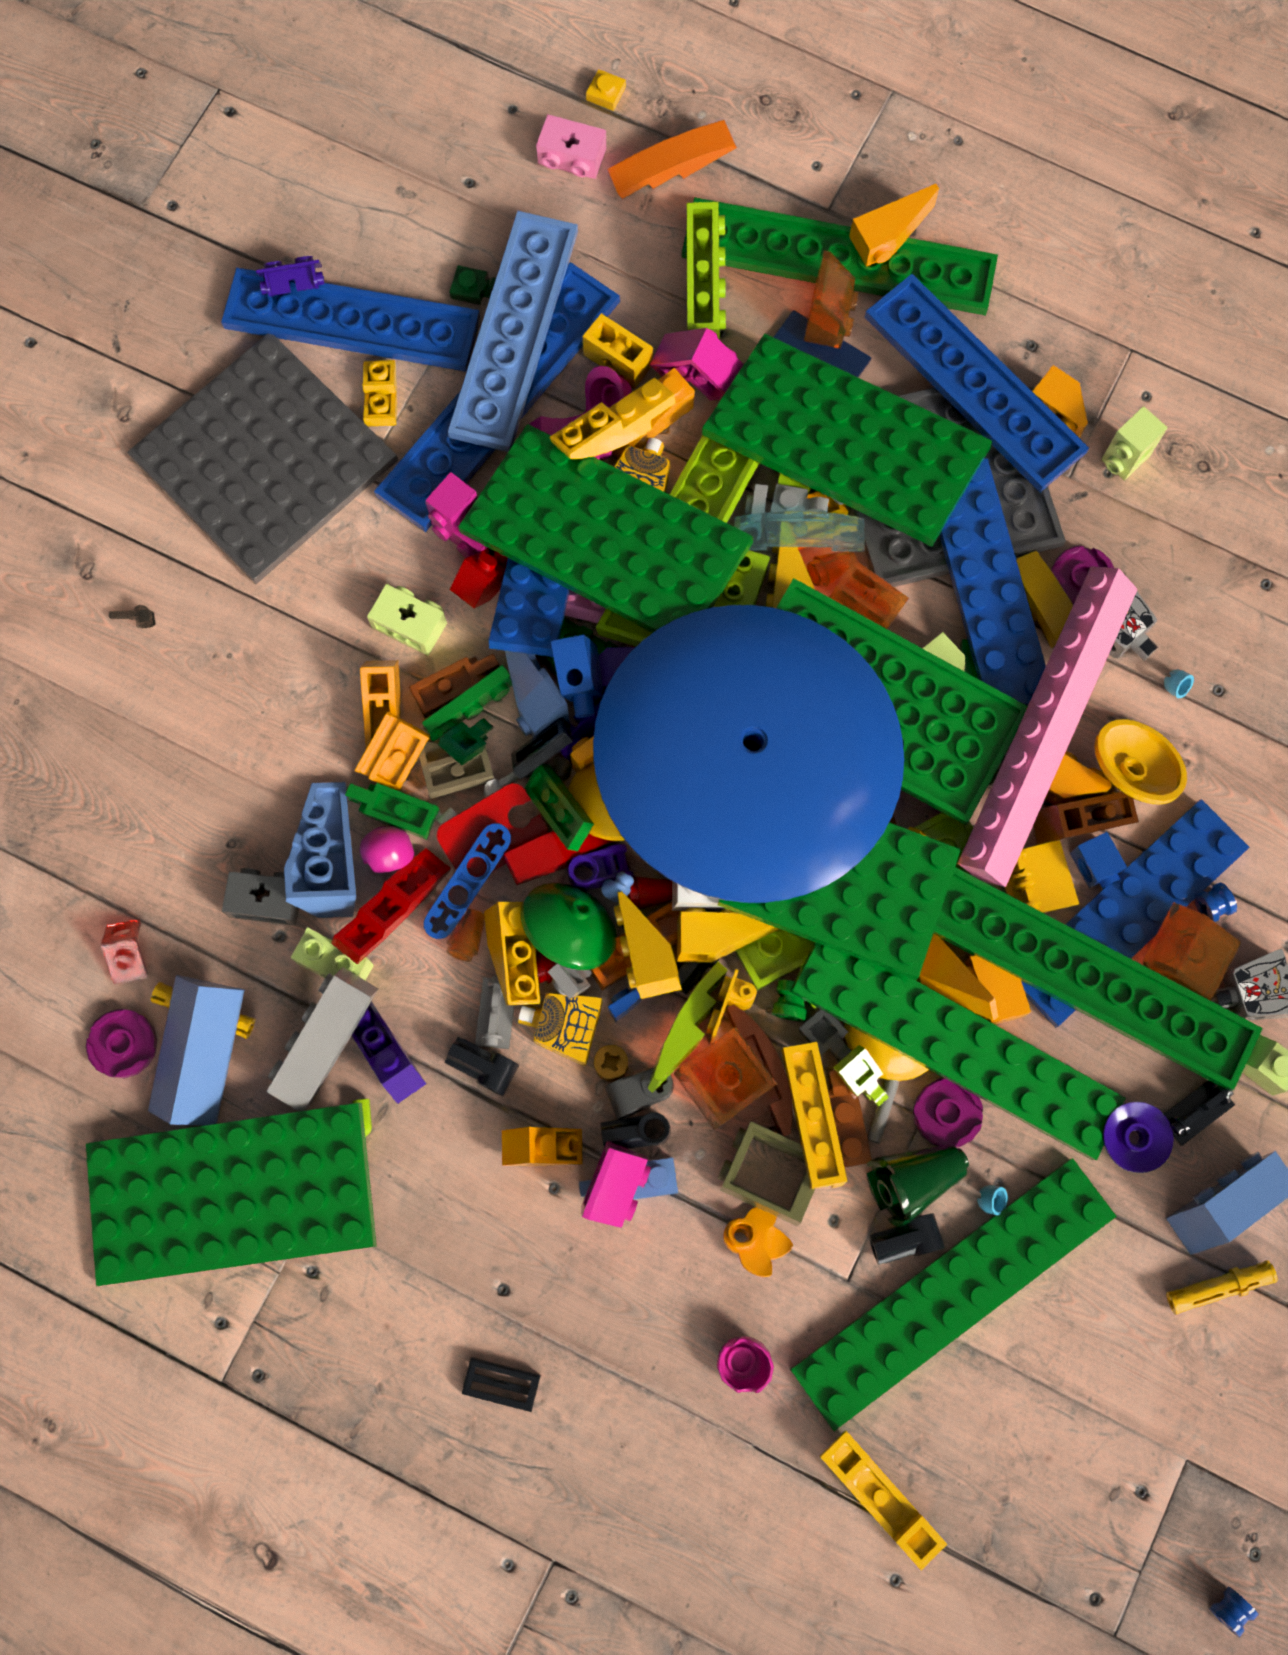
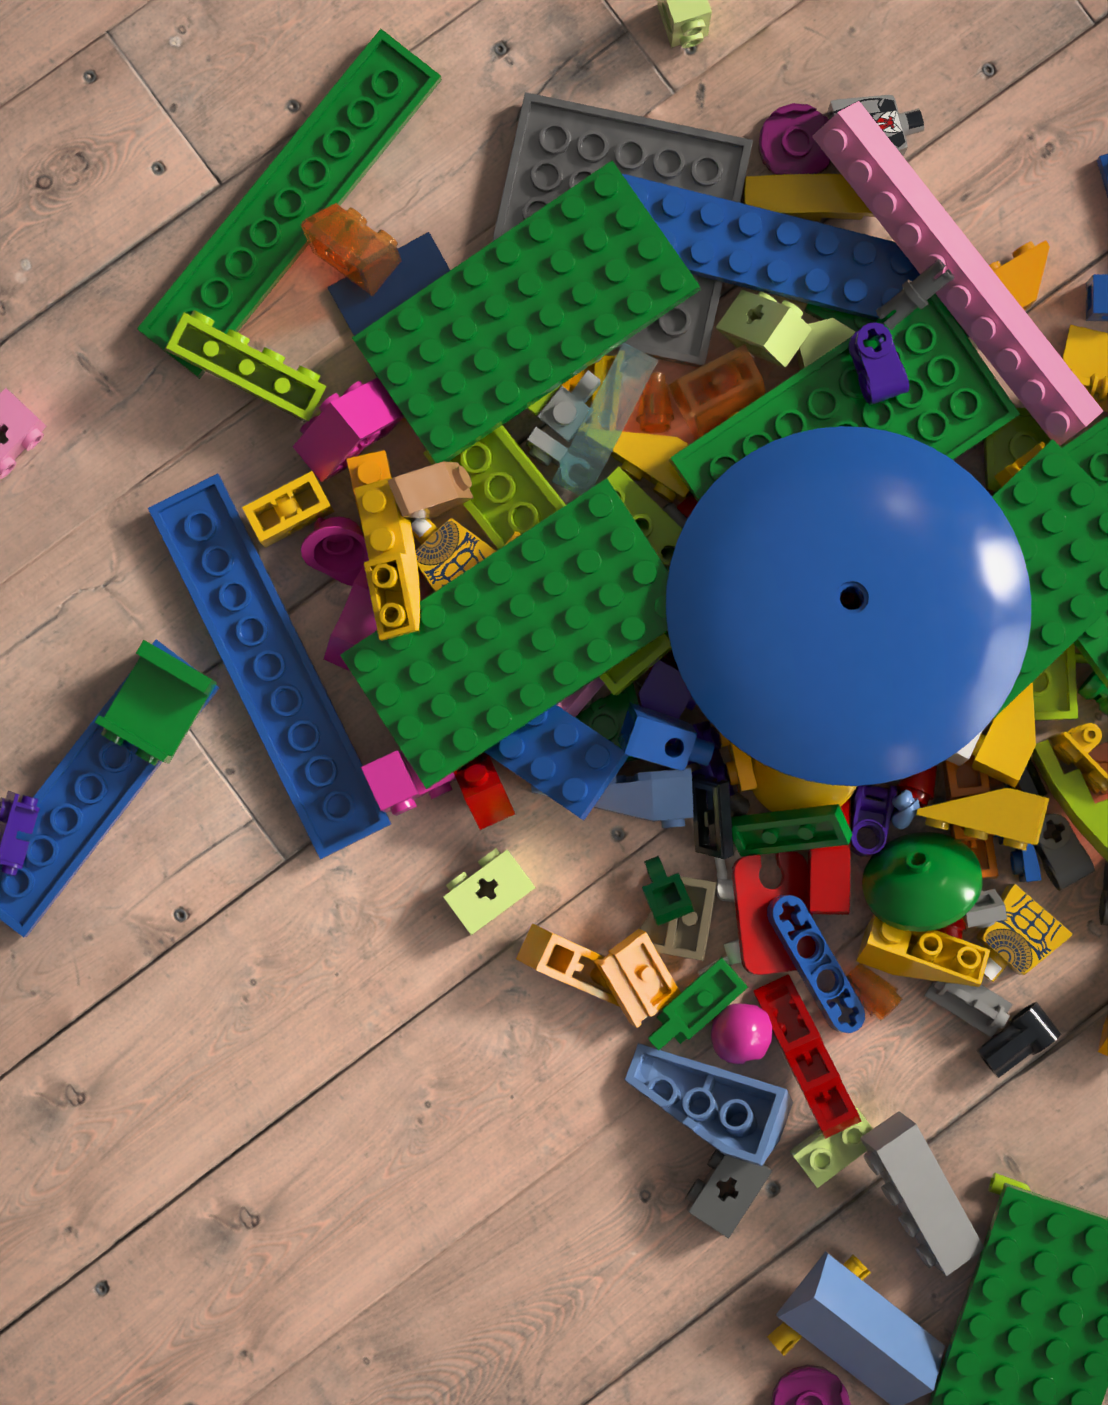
camera: 60 degrees left, 10 degrees up
(123, 952) = (716, 1362): clear red bracket -> none
(143, 616) = (338, 1179): clear smoke hand -> none
(263, 457) = (208, 963): flat silver plate -> none
(380, 393) = (198, 797): yellow slope -> none
(387, 1056) = (969, 1133): dark purple slope -> none
(430, 329) = (156, 705): none -> green panel
(450, 682) = (586, 877): dark orange hinge -> none
(469, 703) = (621, 871): green plate -> none
(471, 285) = (115, 631): dark green plate -> none
(513, 331) = (207, 613): medium blue plate -> none
(609, 1070) = (1071, 906): pearl gold wheel -> none
(643, 1030) = (1063, 856): none -> dark grey piece
(674, 156) = (73, 328): orange slope -> none
(680, 431) = (431, 490): none -> medium nougat slope
(885, 229) = (295, 140): light orange slope -> none
(931, 610) = (765, 327): none -> yellowish green brick
(943, 693) = (878, 369): none -> dark purple piece
(976, 382) = (526, 138): blue plate -> none
(1014, 691) = (914, 294): none -> dark grey pin
(1064, 398) = (589, 57): light orange slope -> none
(1084, 817) = (1063, 287): reddish brown slope -> none
(1140, 762) = (1036, 198): yellow dish -> none
(1179, 683) = (965, 108): medium azure hinge -> none

